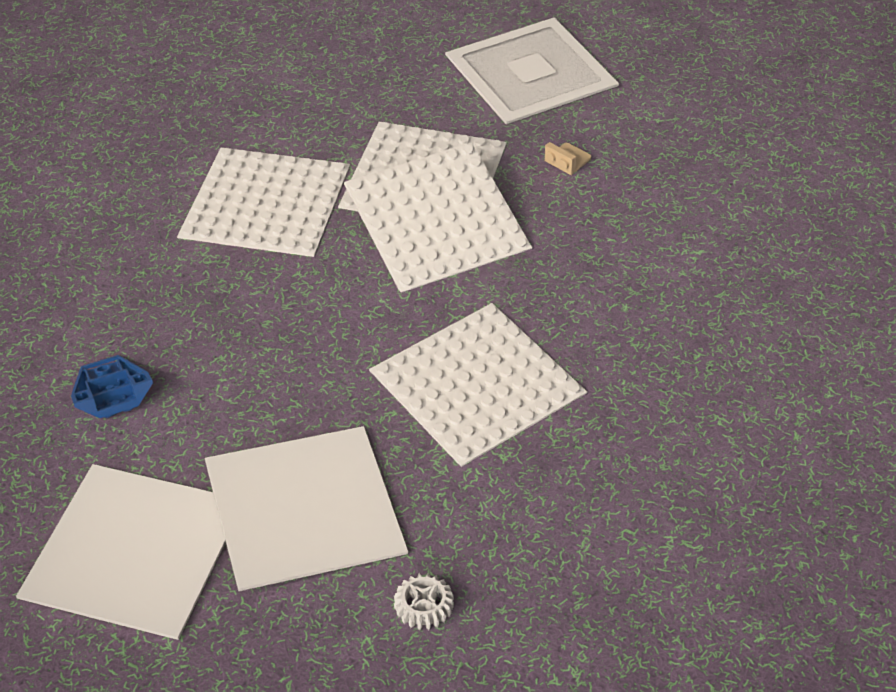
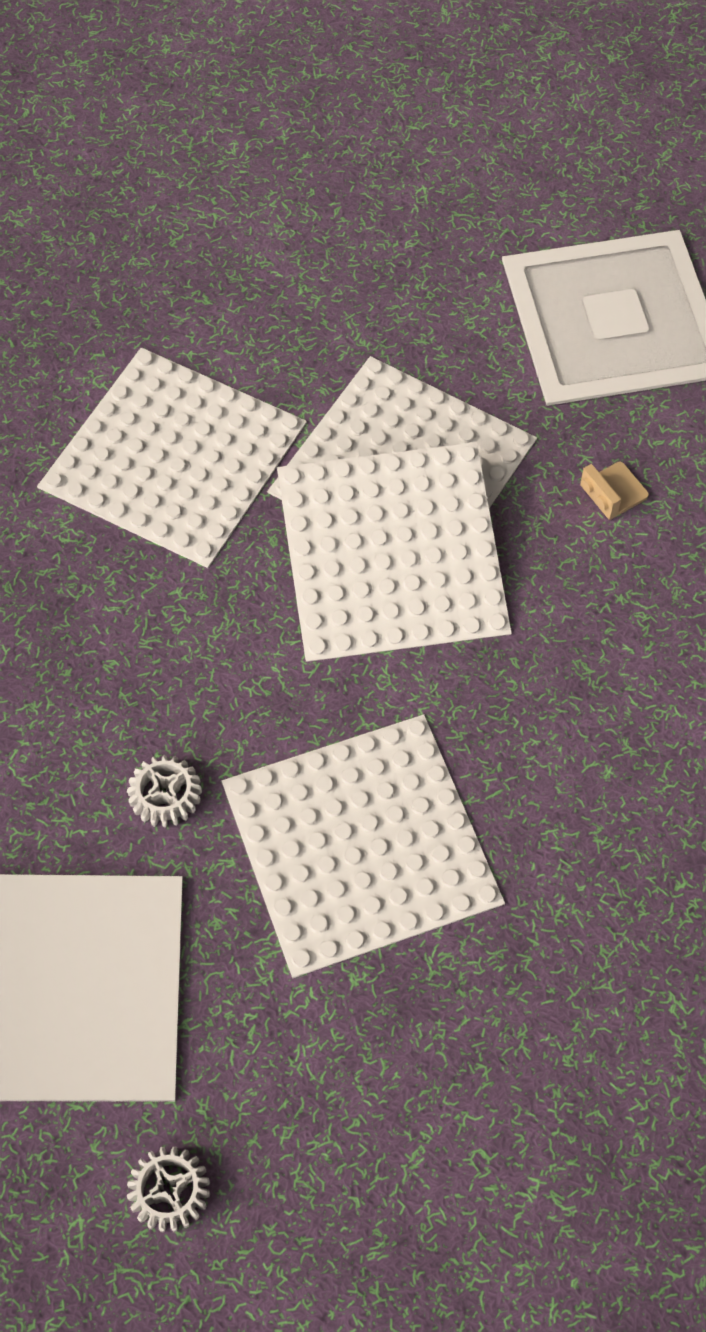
camera: 15 degrees right, 15 degrees up
(333, 385) = (148, 806): none -> white gear

